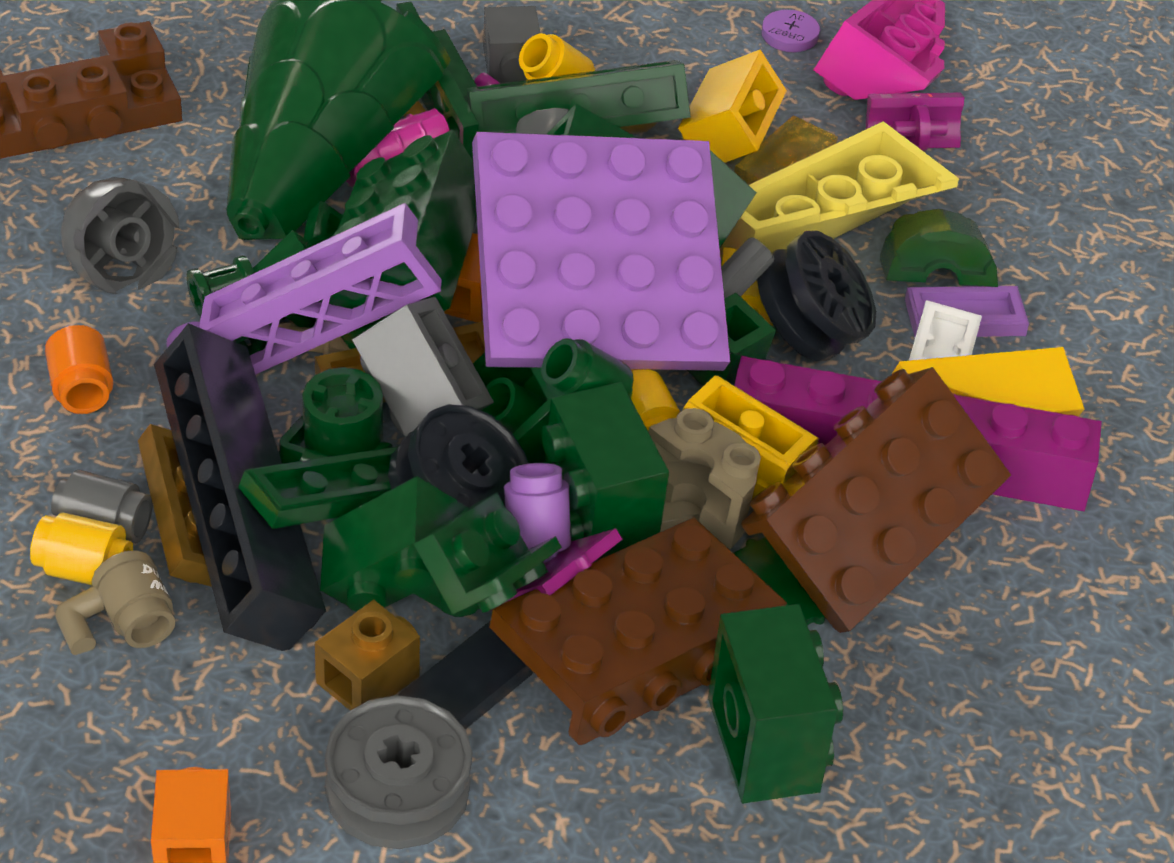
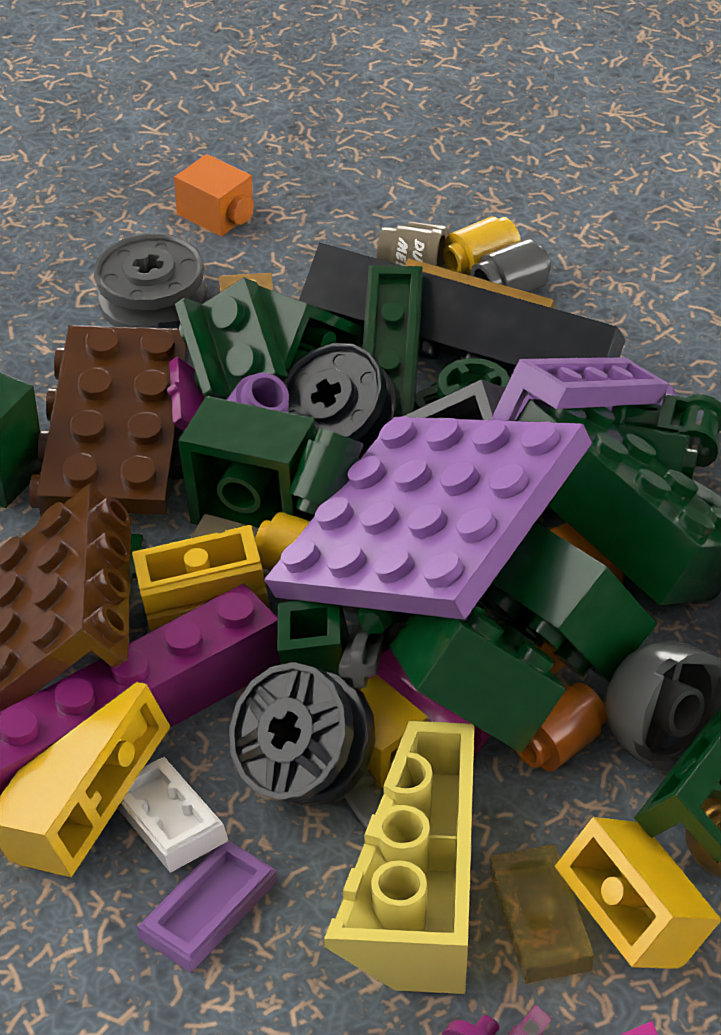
camera: 135 degrees right, 0 degrees up
(79, 368) = (667, 319): orange brick -> none
(709, 469) = (165, 520): dark tan cylinder -> none
(936, 241) = (276, 923): dark green cylinder -> none

